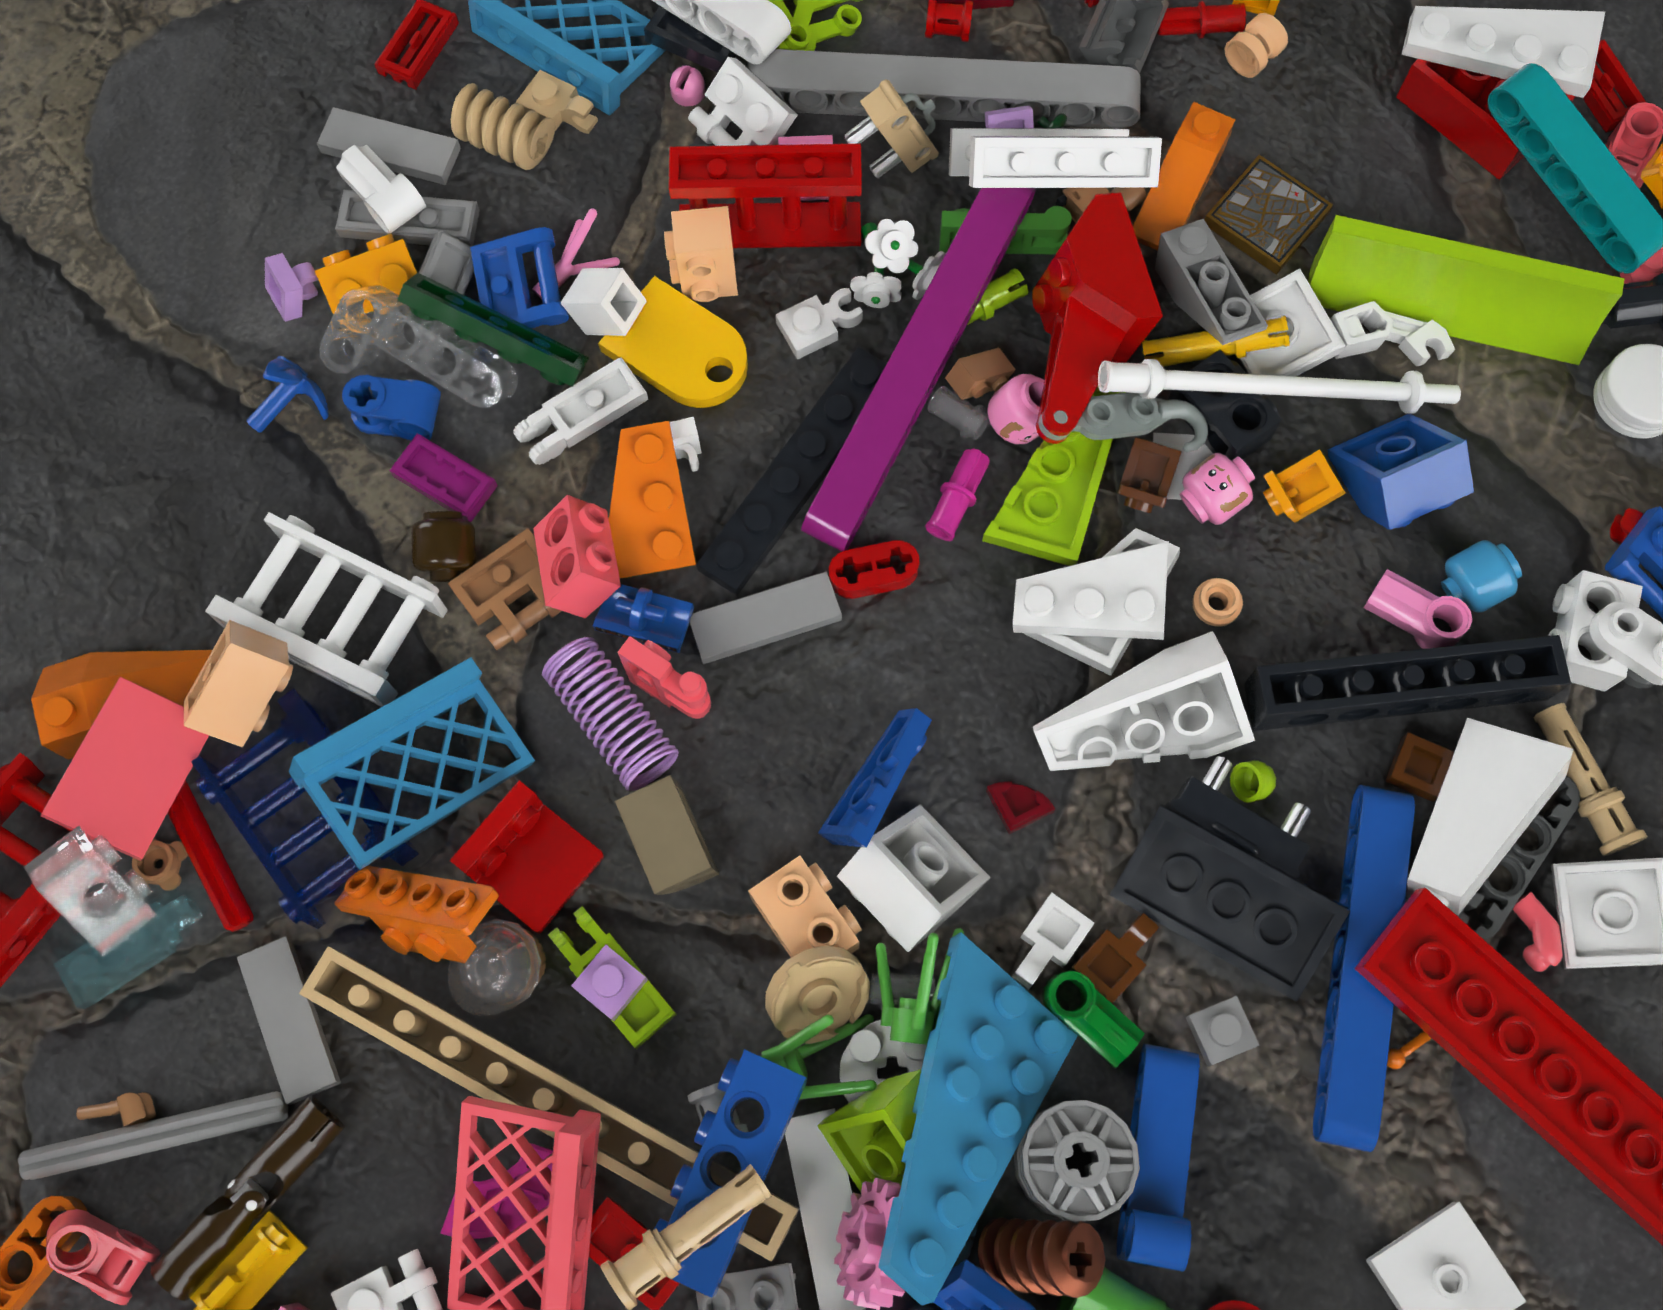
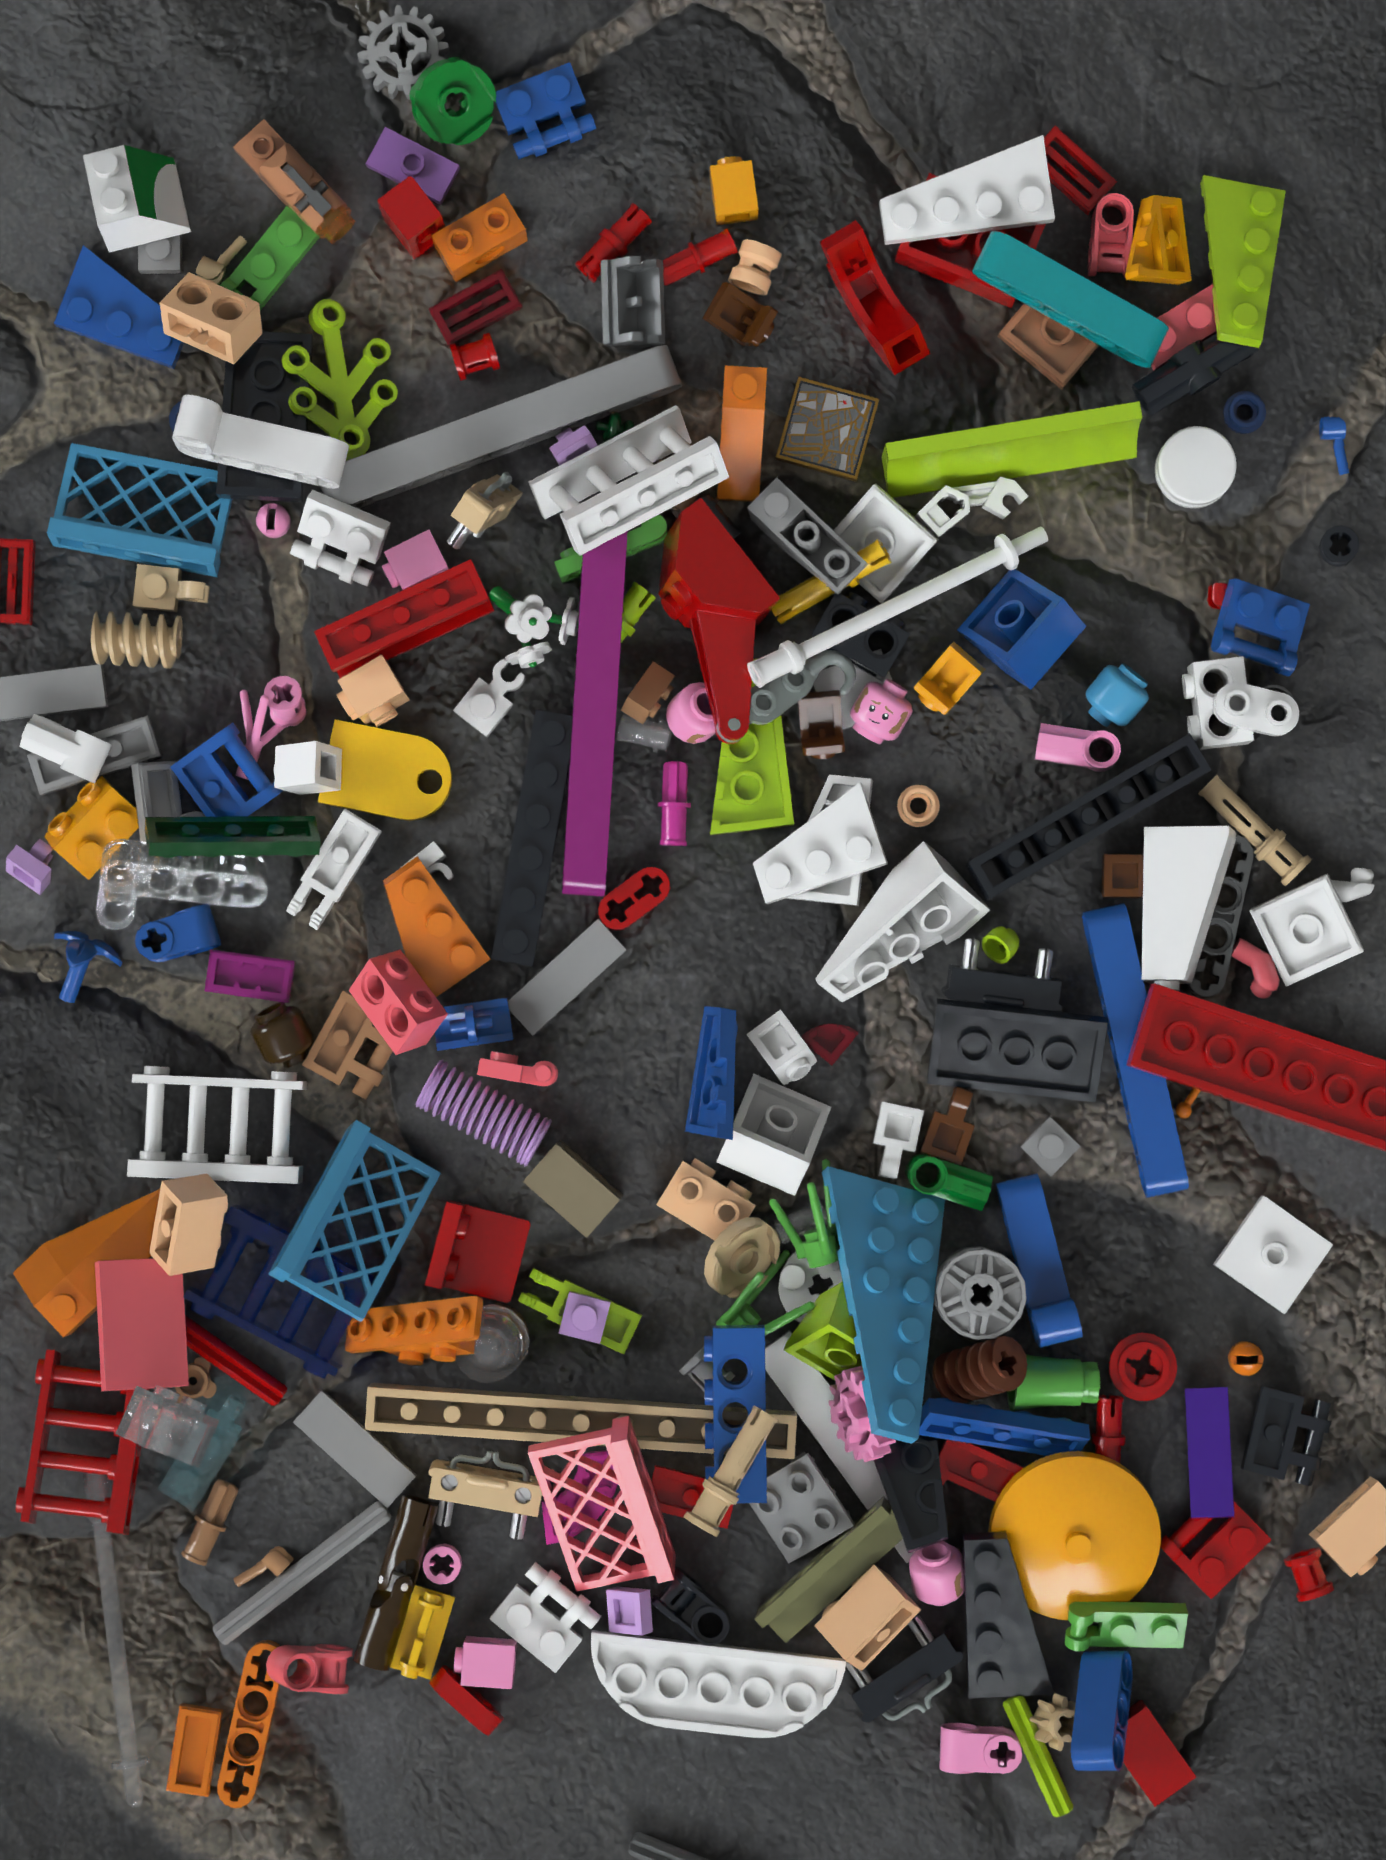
camera: 25 degrees left, 15 degrees up
(87, 1030) = (210, 1522): none -> medium nougat axle
(307, 1216) = (442, 1577): none -> bright pink bush
(401, 1131) = (485, 1488): none -> tan piece
(614, 237) = (281, 709): none -> bright pink bush
(965, 789) = (782, 1048): none -> white bracket
(1223, 80) = (740, 316): none -> reddish brown bracket
(1362, 124) = (871, 300): none -> red arch
(1530, 217) = (1047, 345): none -> nougat plate

